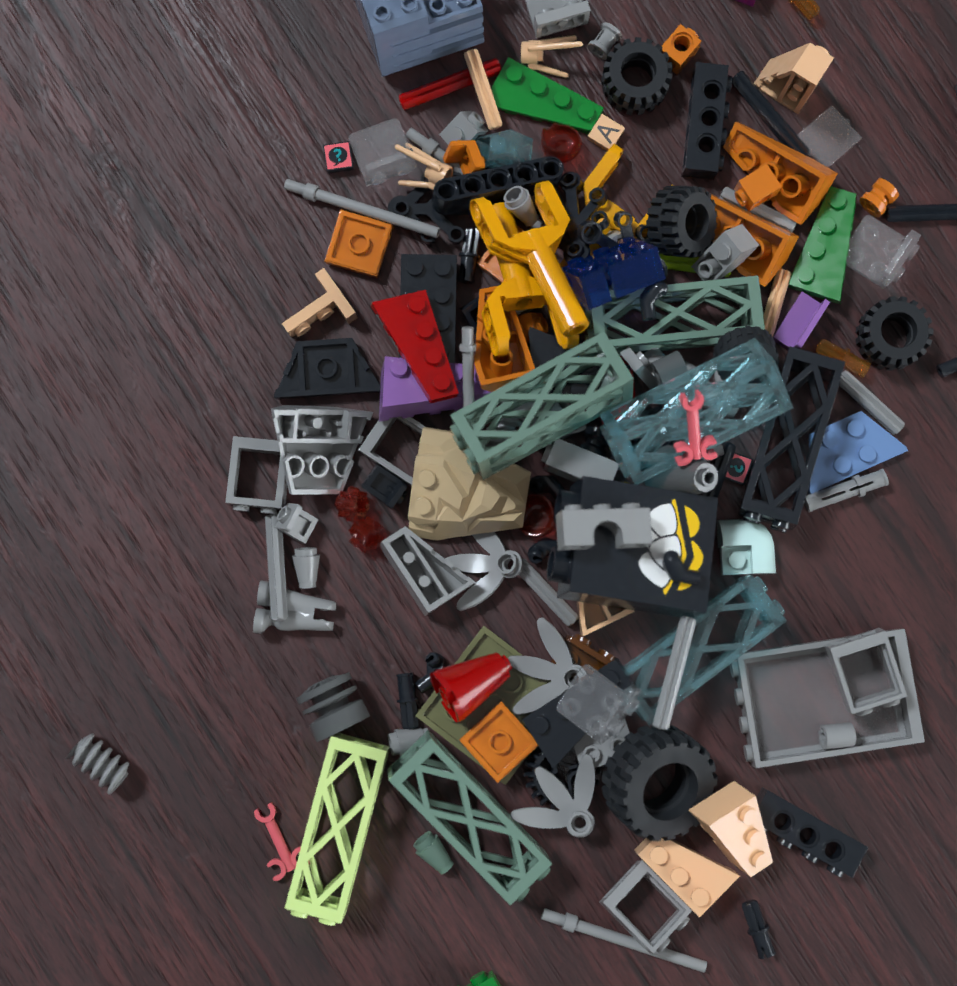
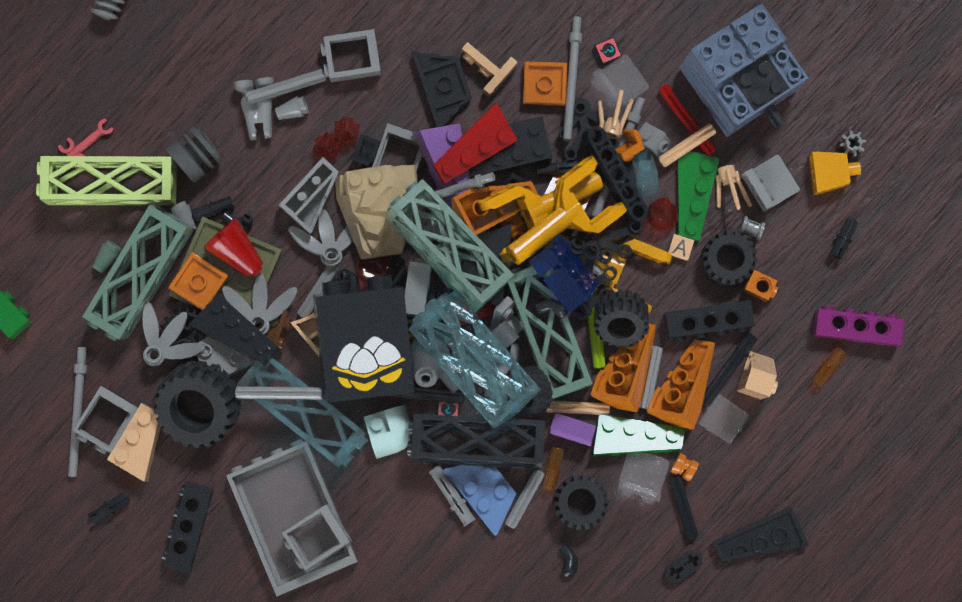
camera: 70 degrees right, 0 degrees up
(295, 522) = (322, 92): light grey bracket -> none
(318, 445) = (383, 92): light grey wedge -> none
(520, 204) = (603, 194): light grey cone -> none
(598, 704) = (241, 342): clear bracket -> none
(629, 525) = (375, 327): light grey arch -> none
(677, 571) = (350, 372): black arm -> none
(697, 446) = (445, 364): coral bar -> none
(725, 253) = (606, 358): light grey slope -> none
(736, 827) = (179, 468): light nougat wedge -> none
(757, 188) = (663, 369): orange brick -> none
(837, 735) = (264, 530): light grey piece -> none

